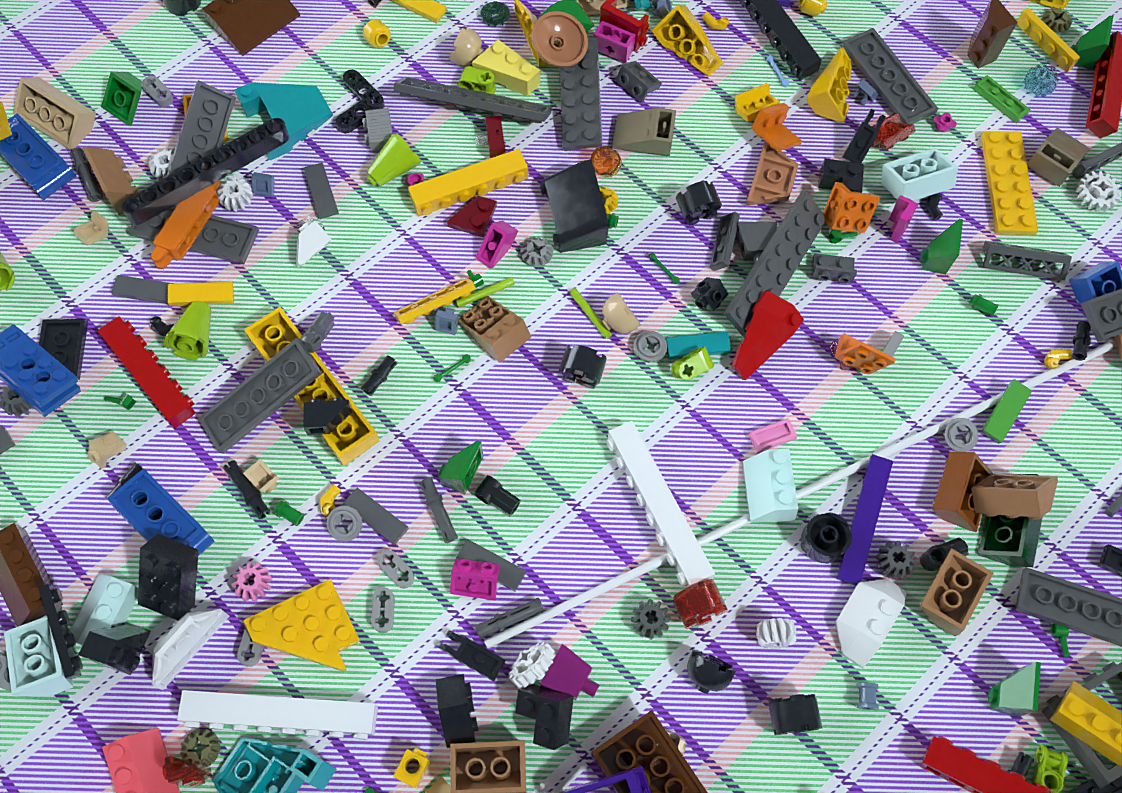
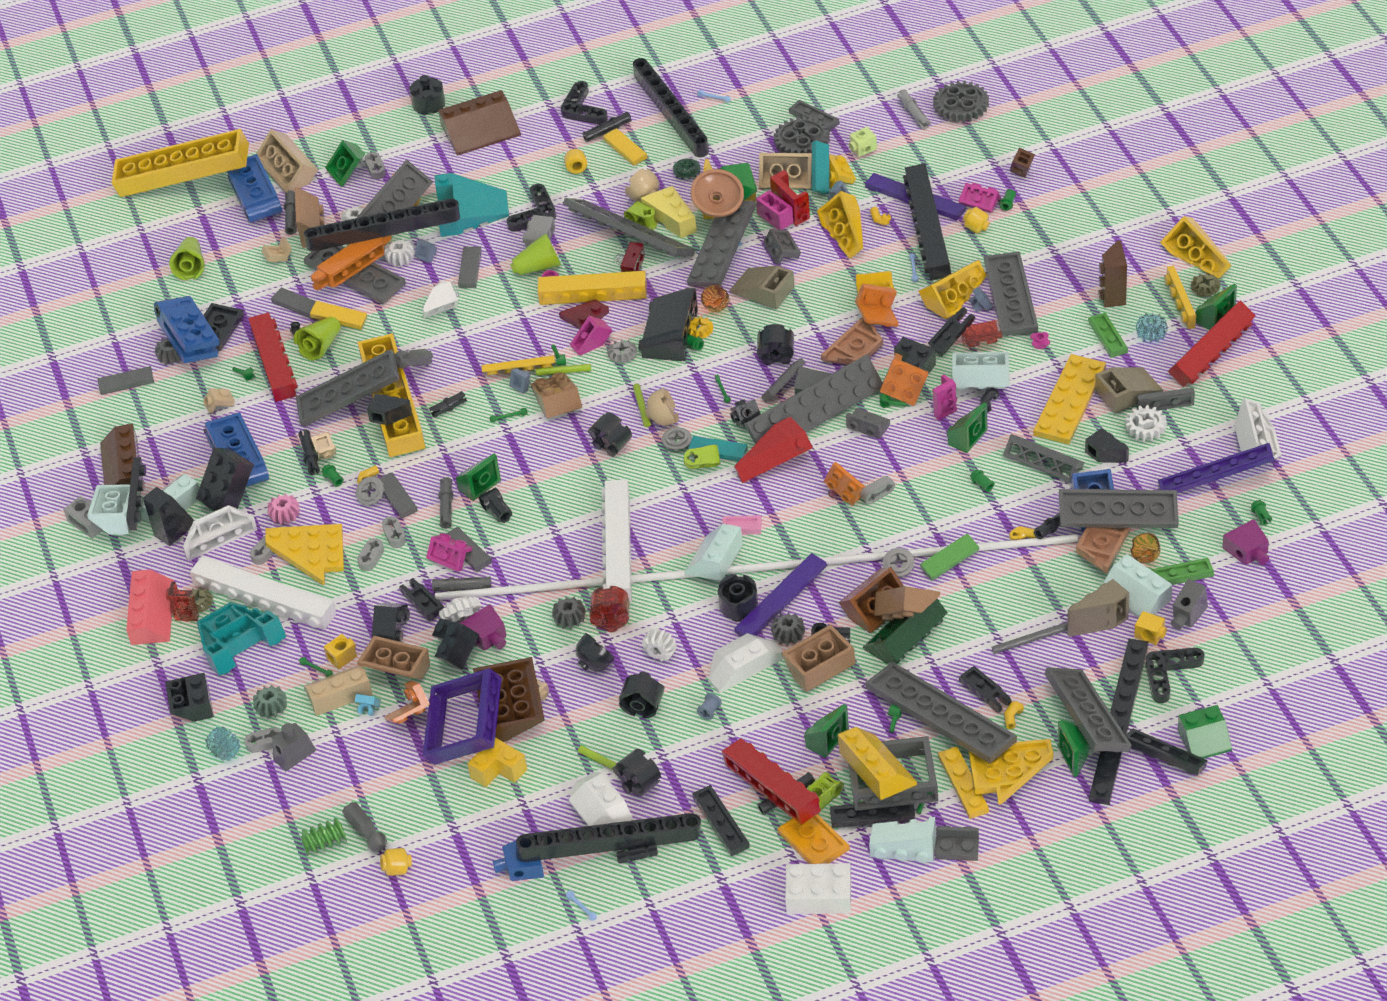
camera: 30 degrees right, 20 degrees down
(1079, 230) = (1106, 448): none -> black slope

